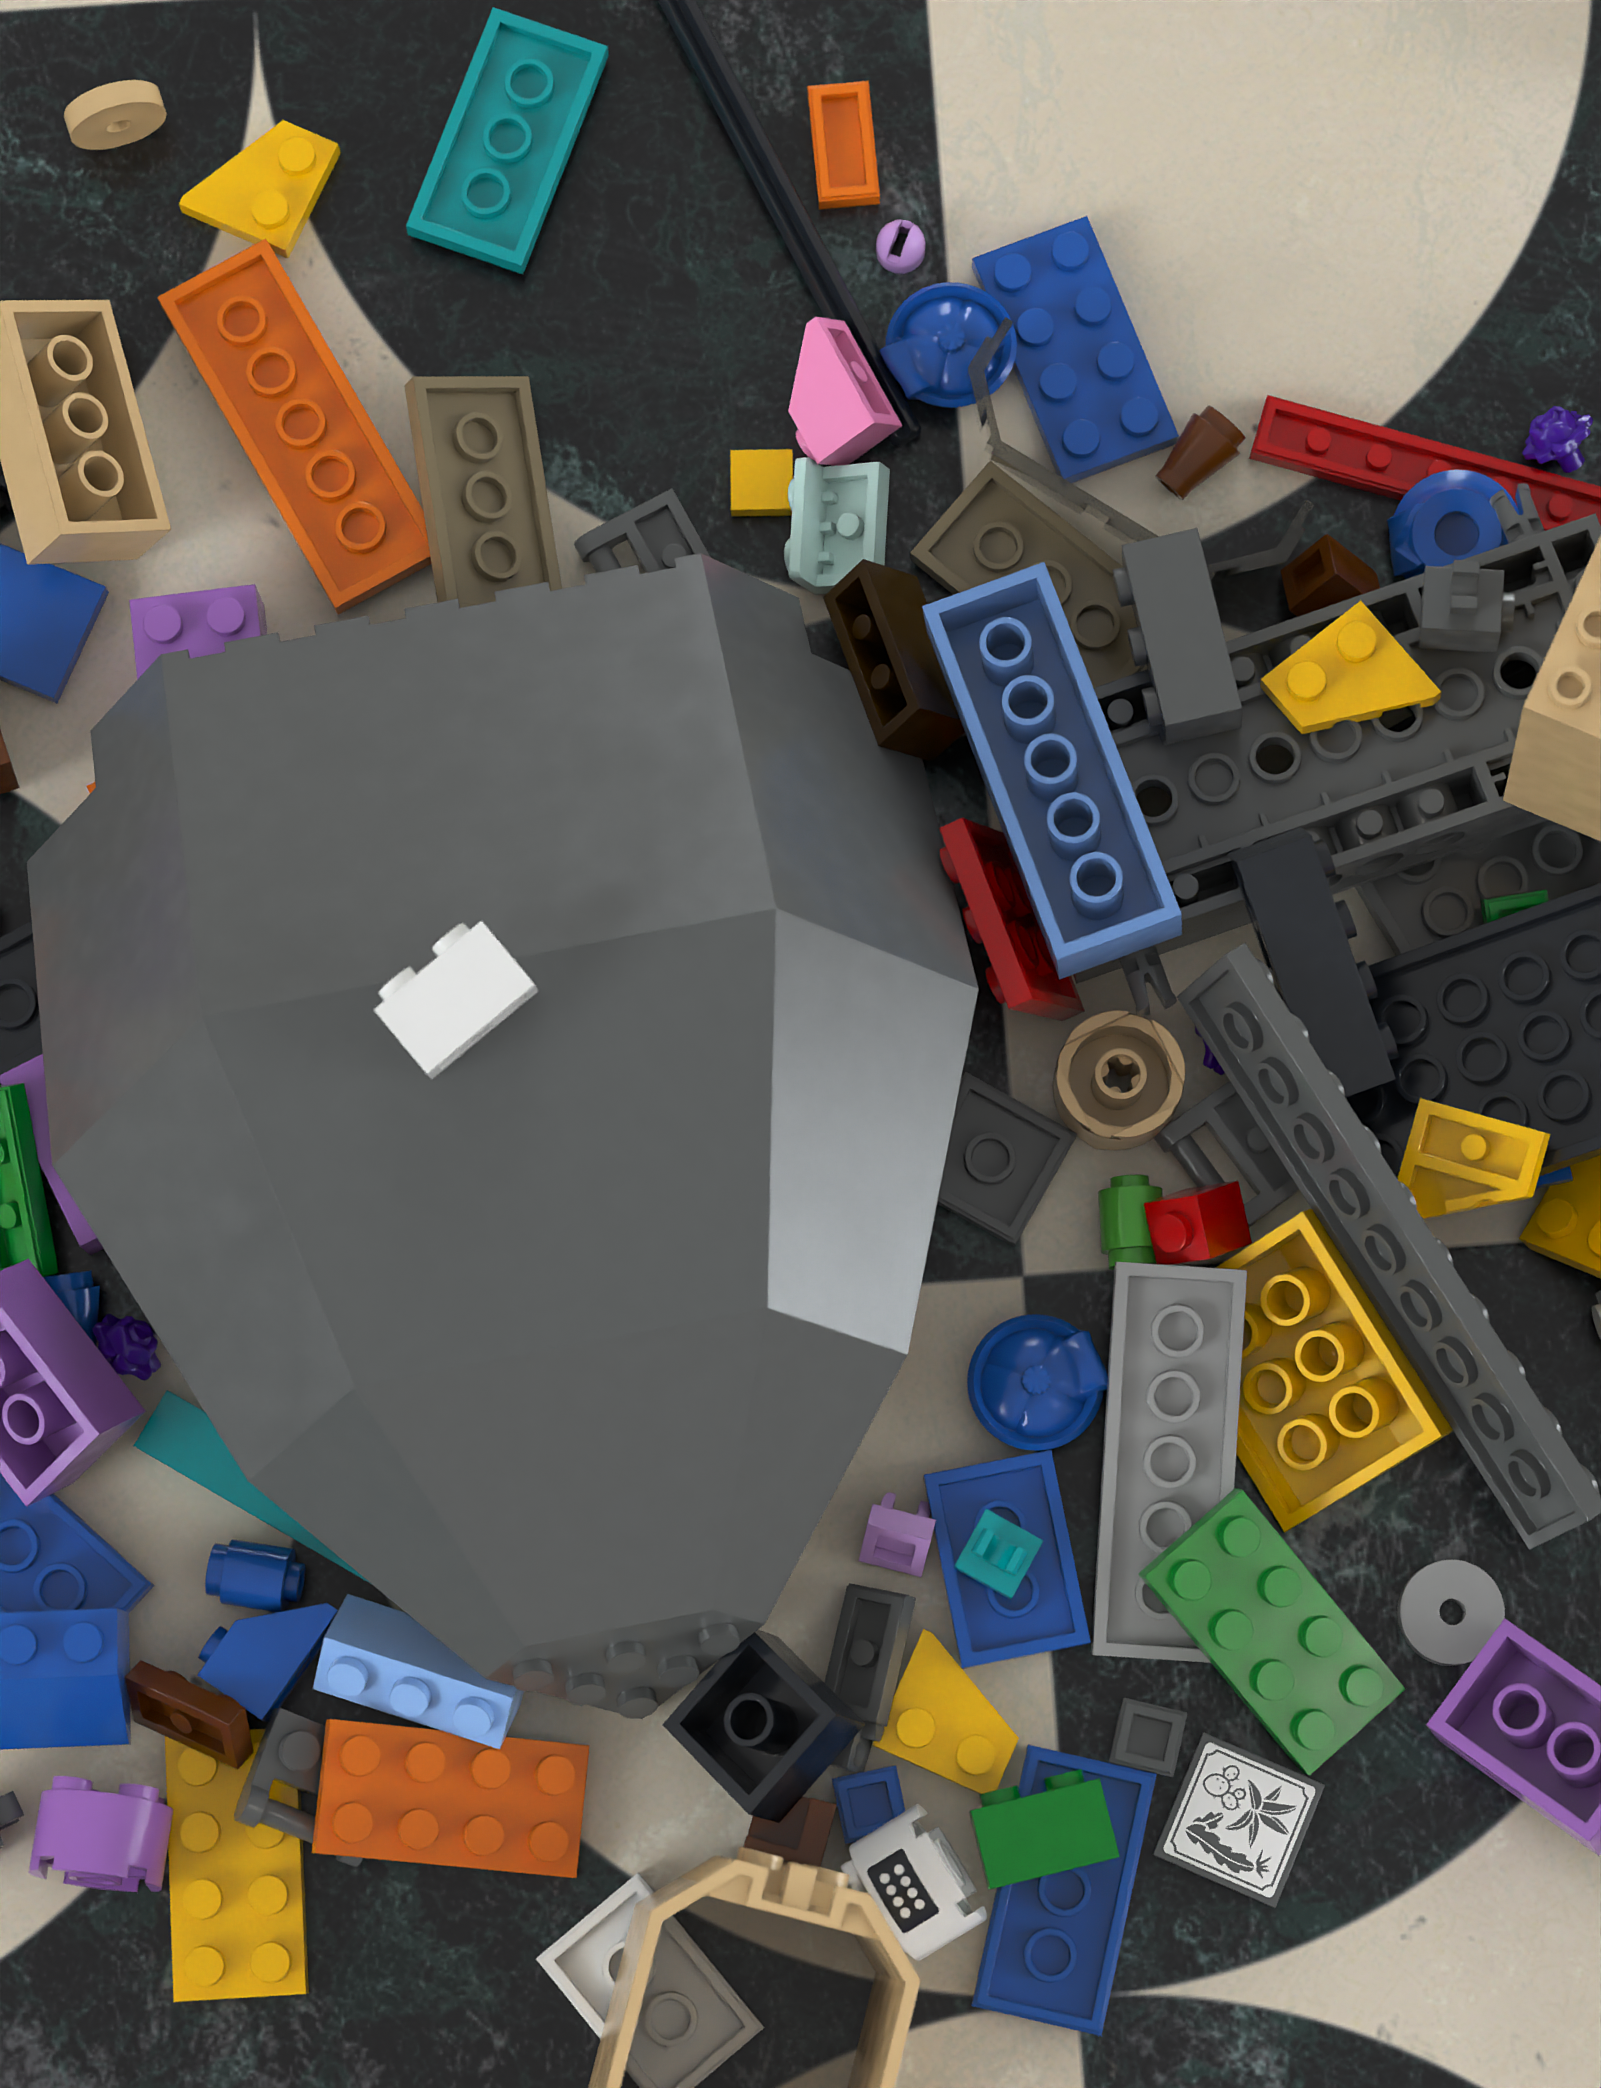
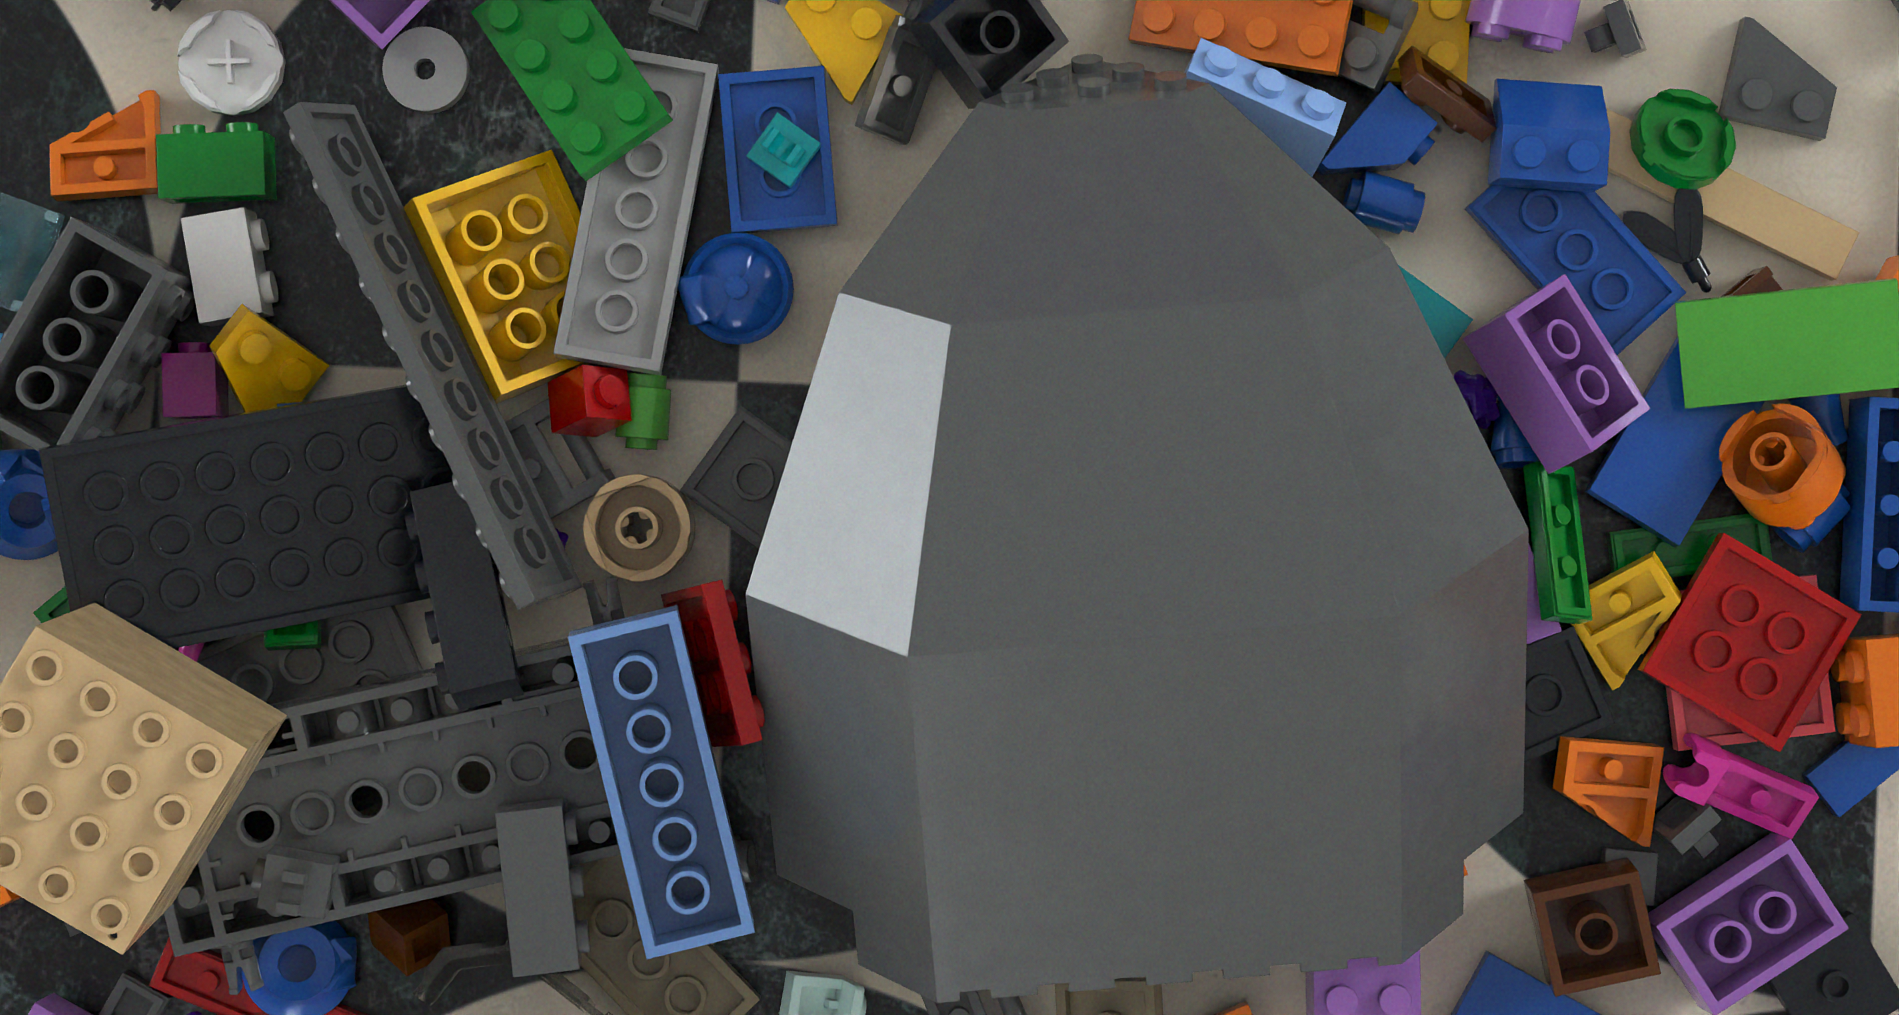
camera: 175 degrees left, 10 degrees up
(454, 997) = (1187, 603): white brick -> none
(892, 660) = (786, 902): dark brown brick -> none
(897, 1537) = (863, 175): lavender tile -> none
(1347, 674) = (402, 838): yellow wing -> none
(1468, 1160) = (358, 417): yellow wing -> none

